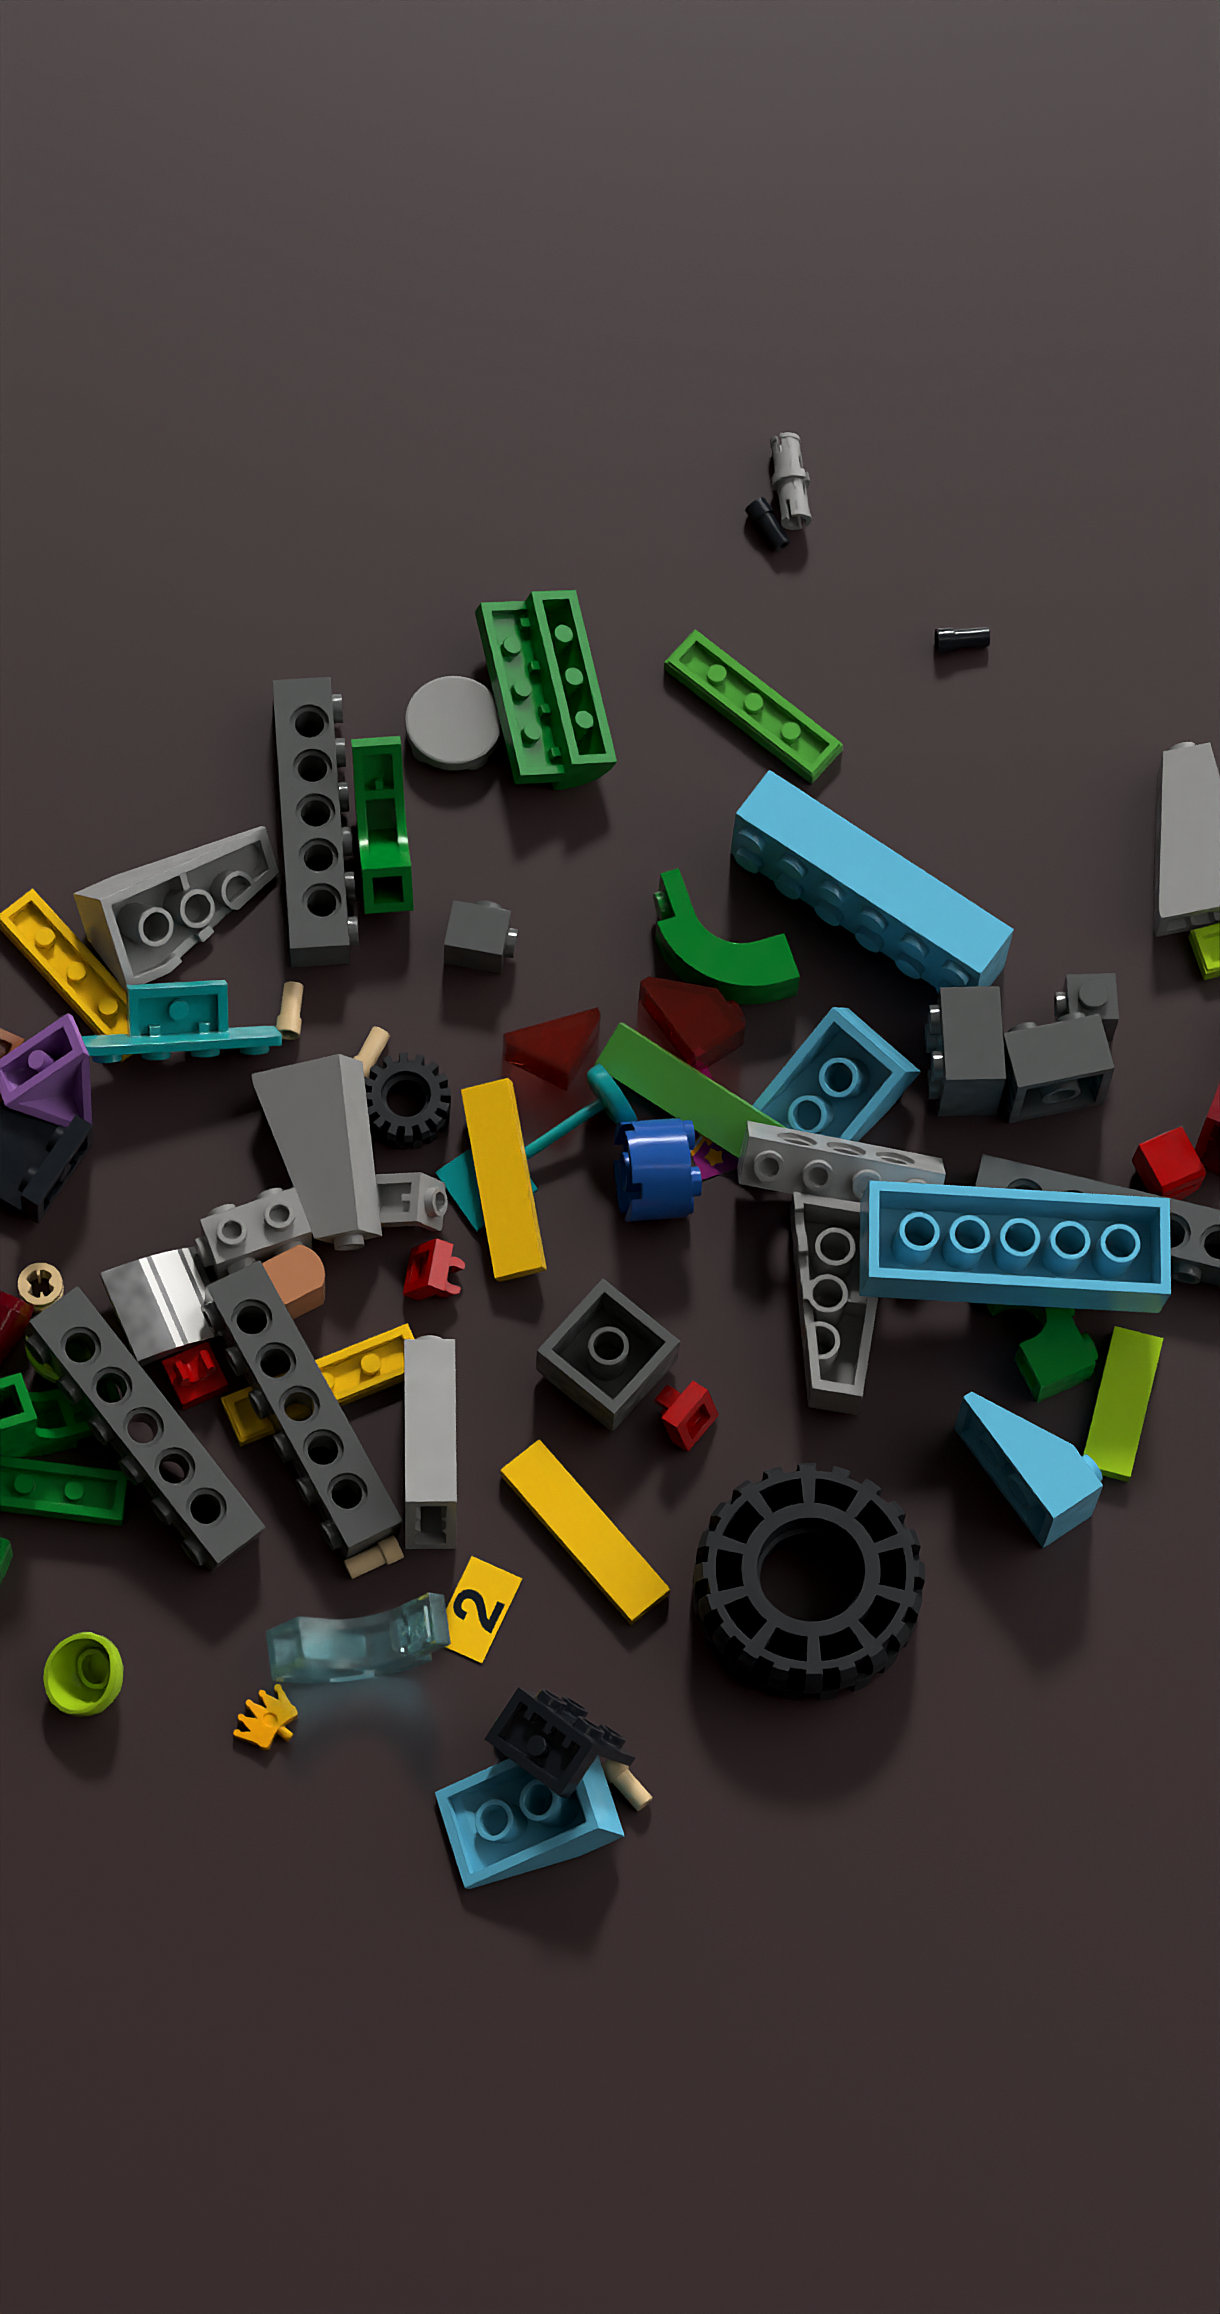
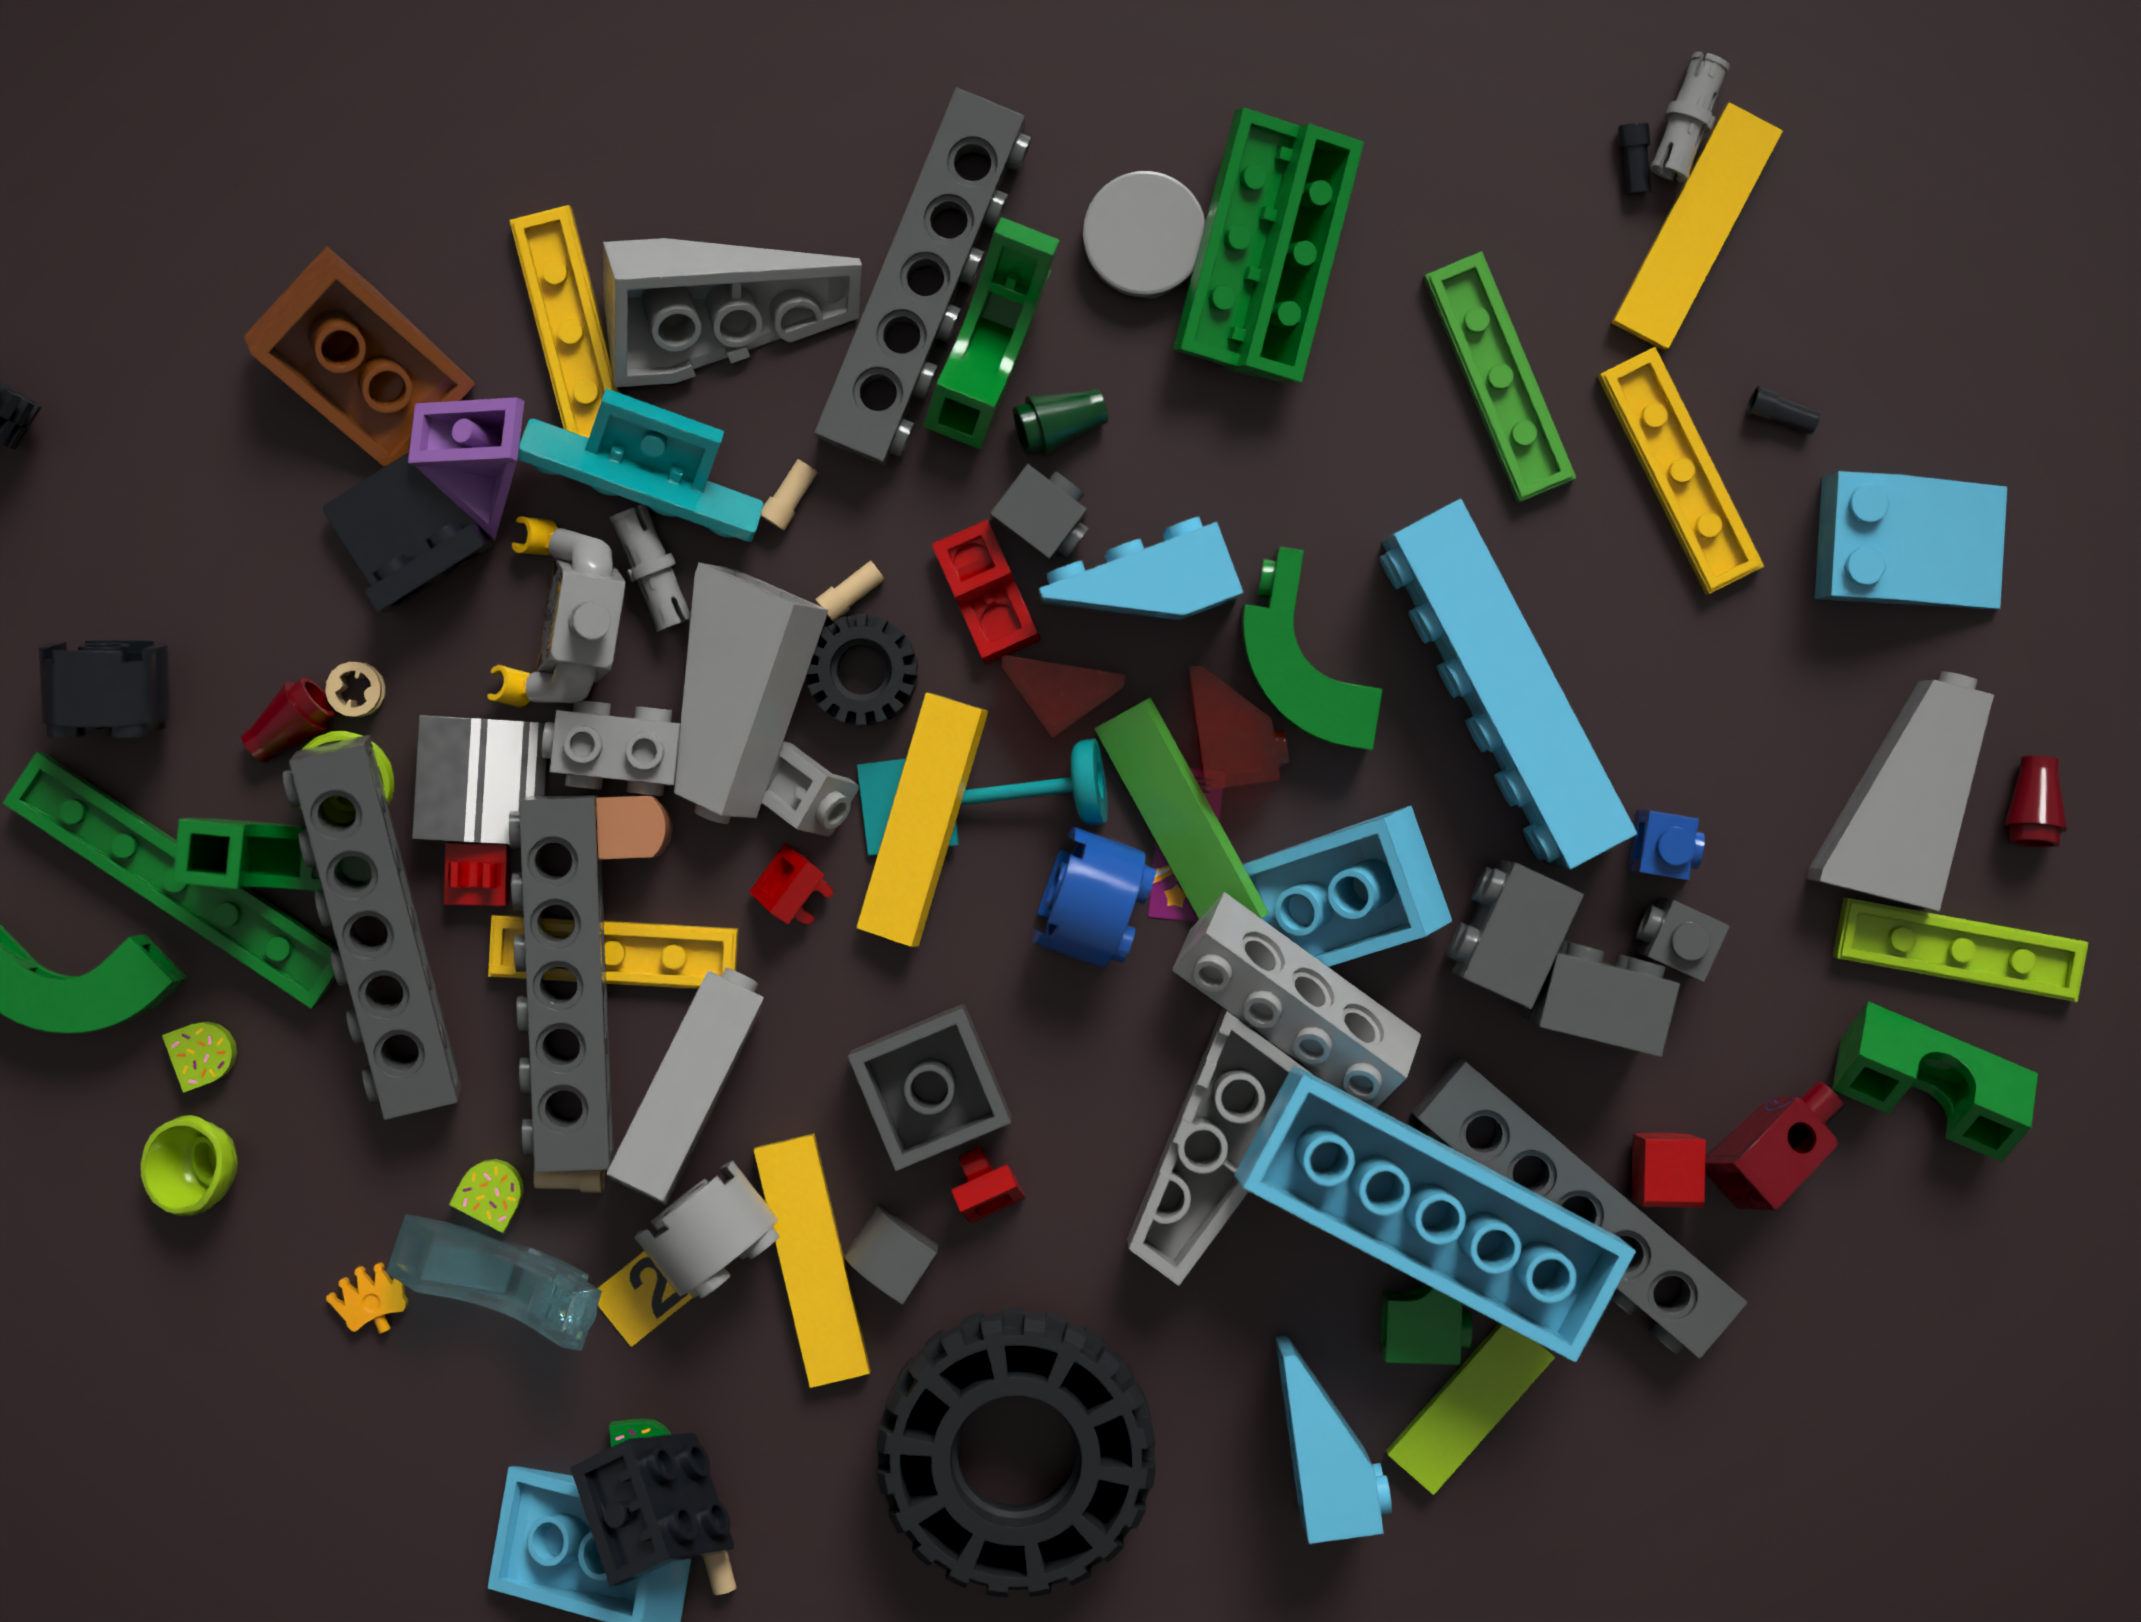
camera: 30 degrees right, 20 degrees up
(50, 1600) = (200, 1053): none -> lime tile
(184, 1156) = (578, 618): none -> light grey torso
(216, 1102) = (651, 567): none -> light grey pin
(320, 1595) = (490, 1193): none -> lime tile
(454, 872) = (1056, 419): none -> dark green cone
(465, 1010) = (986, 592): none -> red slope
(499, 1530) = (708, 1231): none -> light grey brick
(583, 937) = (1162, 581): none -> medium azure slope
(641, 1495) = (891, 1254): none -> dark grey brick
(835, 550) = (1696, 226): none -> yellow tile
(913, 709) = (1680, 470): none -> yellow tile
(1041, 951) = (1666, 844): none -> blue brick
(1095, 679) = (1910, 540): none -> medium azure slope

